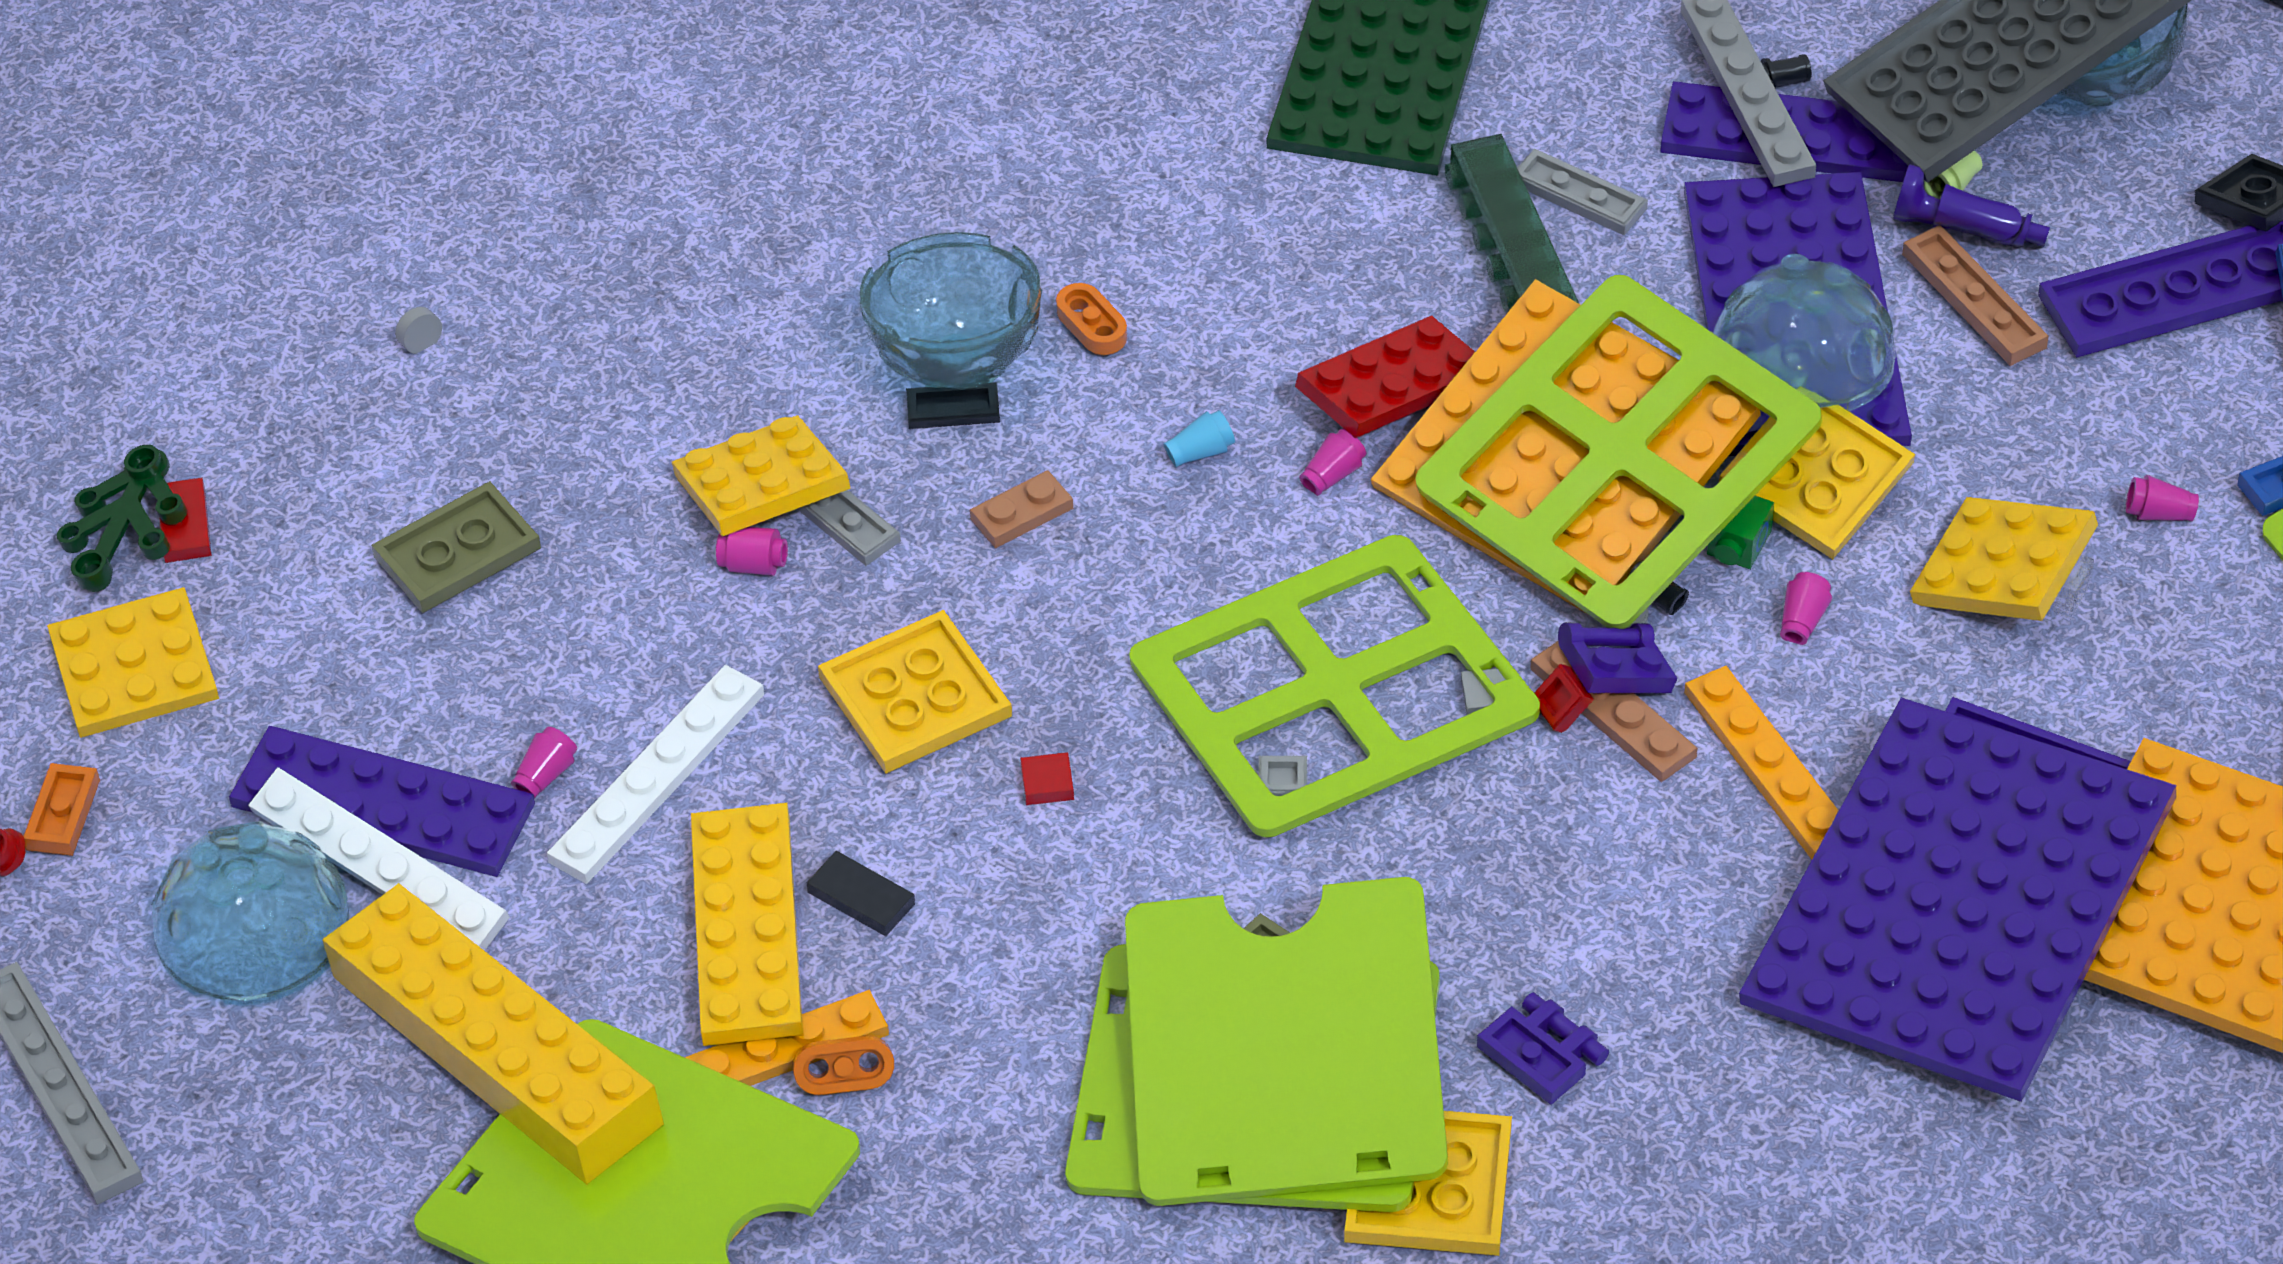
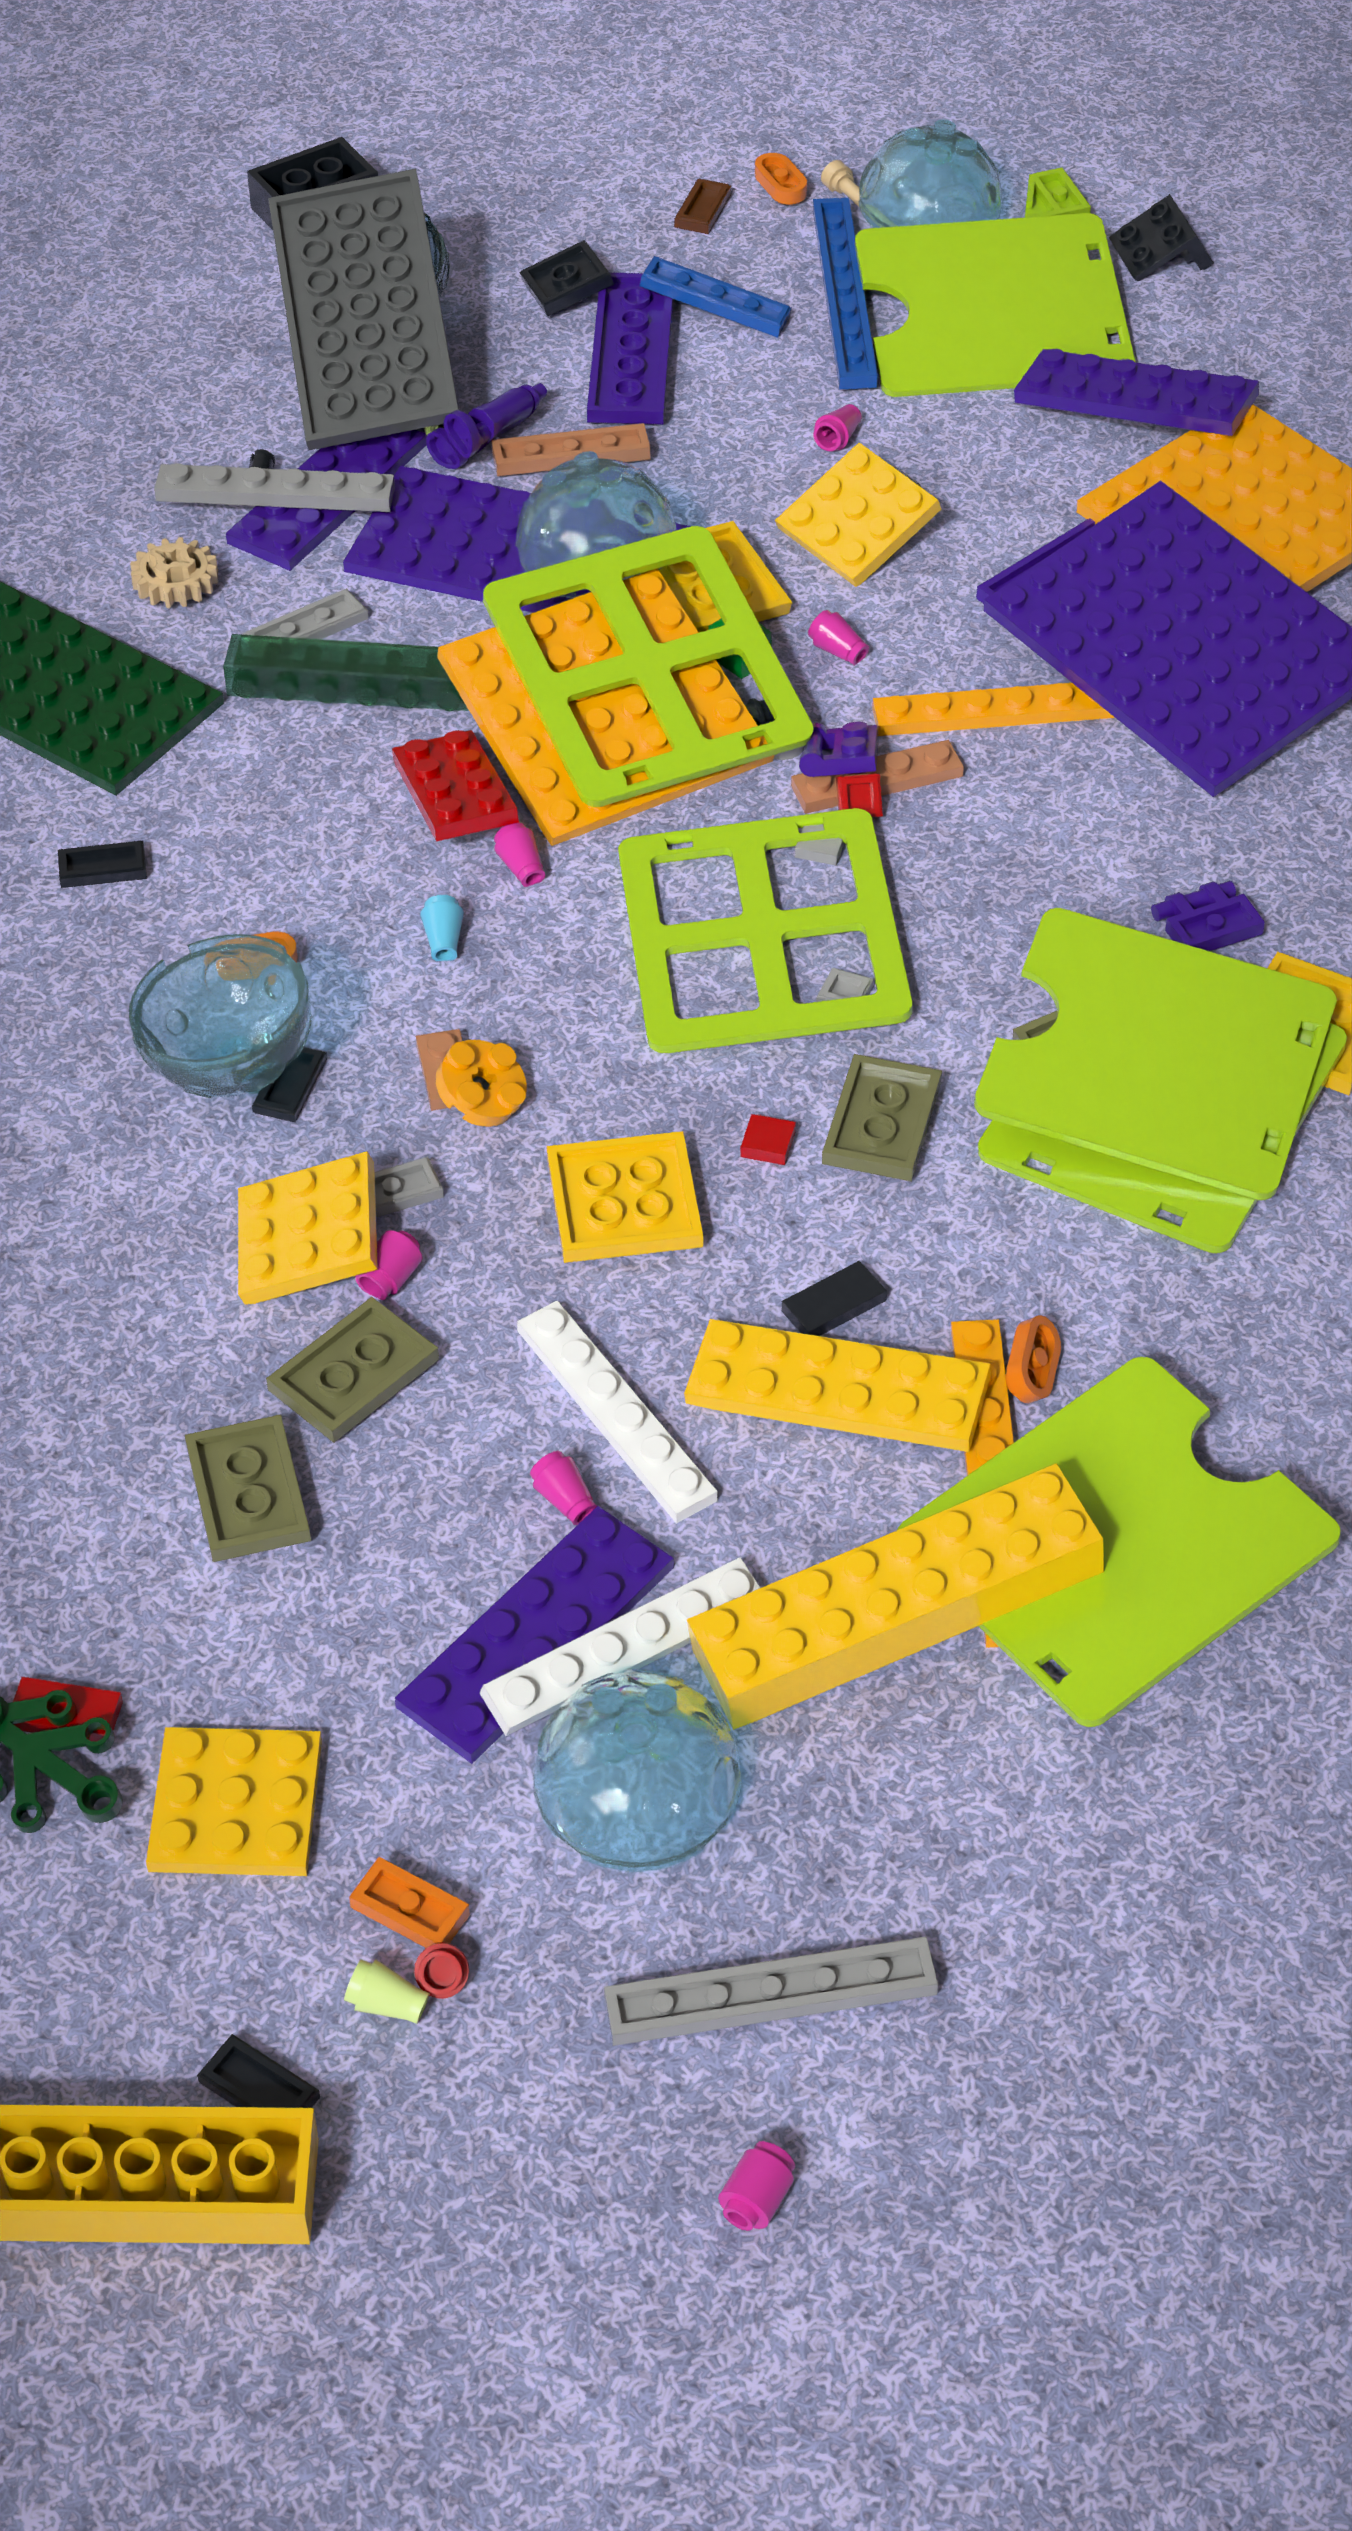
camera: 70 degrees left, 0 degrees up
(619, 569) = (352, 1369): none -> olive plate
(1005, 508) = (493, 1063): none -> light orange plate
(1113, 855) = (882, 1117): none -> olive plate
(1164, 172) = (102, 864): none -> black tile
(1607, 70) = (177, 570): none -> tan gear

